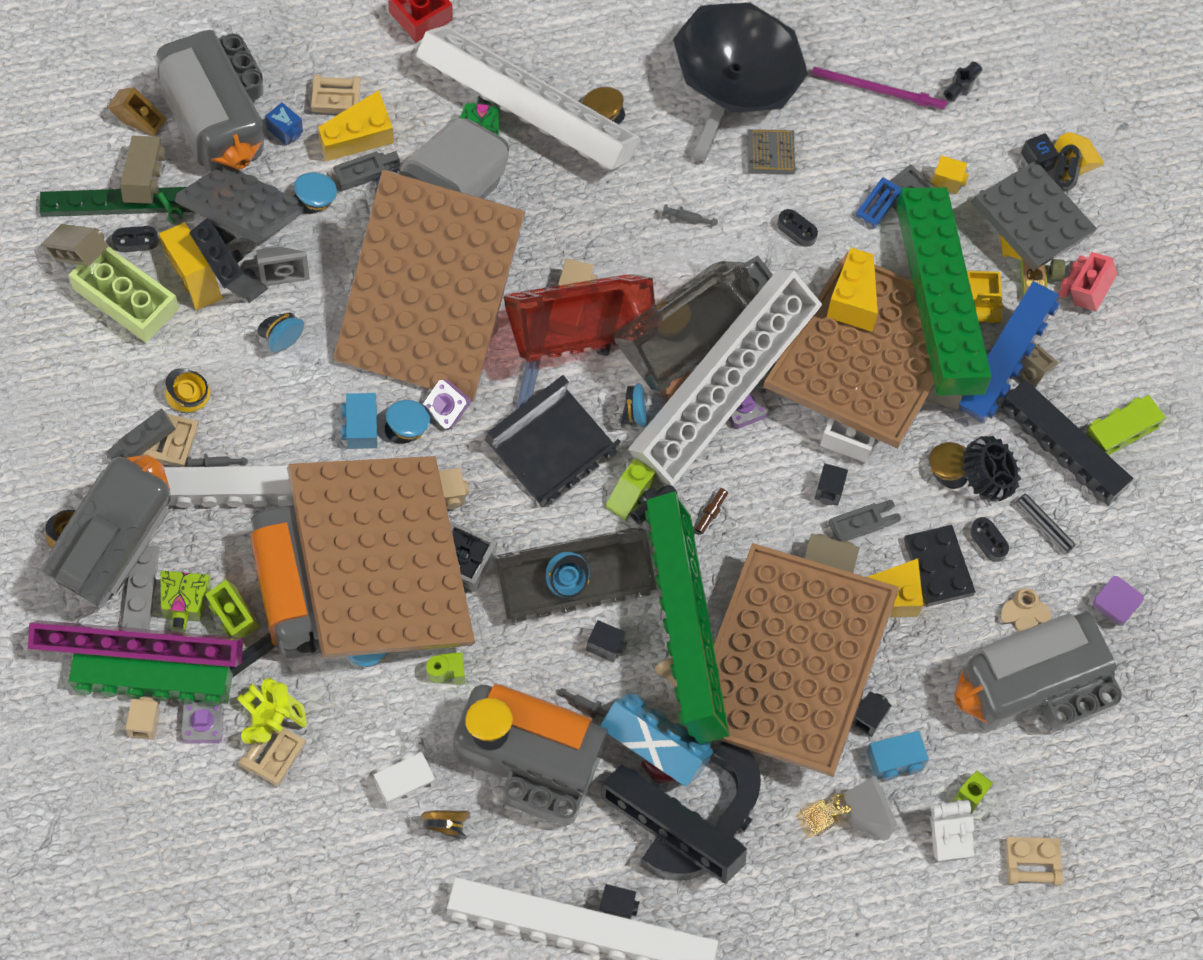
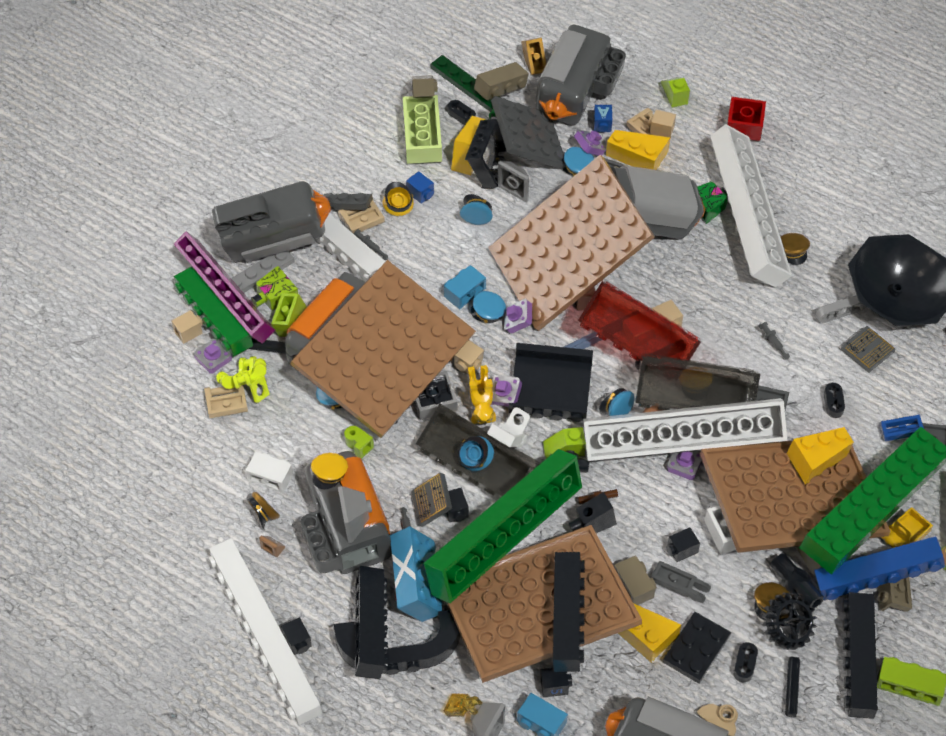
camera: 55 degrees right, 10 degrees down
(195, 355) = (420, 187): none -> blue brick
(304, 160) = (590, 142): none -> medium lavender piece
(317, 31) = (676, 91): none -> lime slope
(354, 81) = (662, 123): none -> tan brick
(490, 845) = (271, 545): none -> medium nougat slope
(510, 514) = (481, 396): none -> yellow animal
(519, 489) = (505, 390): none -> piece
(564, 739) = (354, 510): none -> light grey slope
(576, 526) = (509, 432): none -> white piece
(583, 657) = (431, 499): none -> dark grey tile
(737, 526) = (594, 512): none -> black torso
(836, 641) = (567, 612): none -> black brick
(953, 426) = (797, 580): none -> black piece

